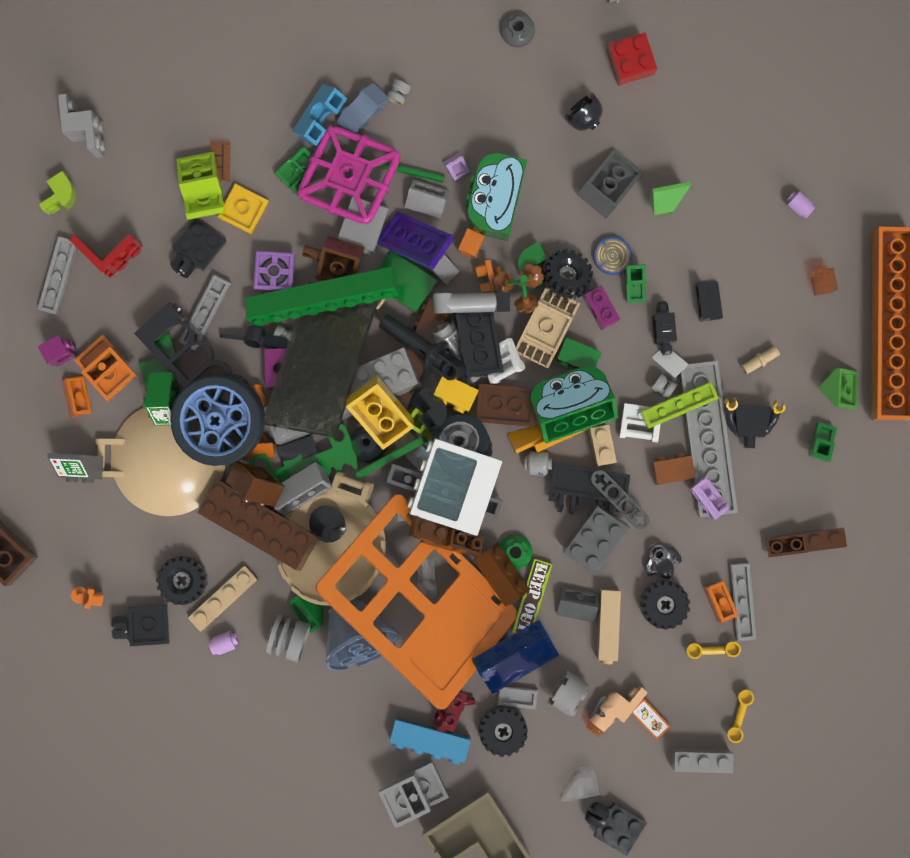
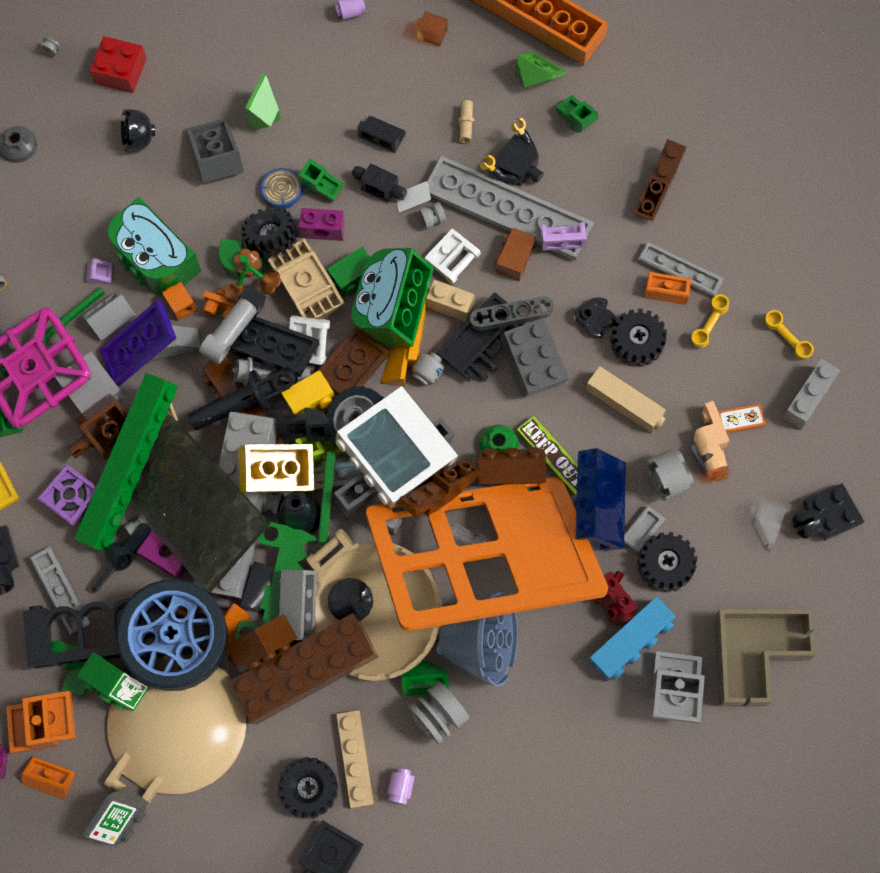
camera: 55 degrees left, 15 degrees down
(412, 282) = (180, 370): green slope -> none
(578, 604) = (588, 416): dark grey panel -> none
(679, 405) = (459, 211): lime tile -> none

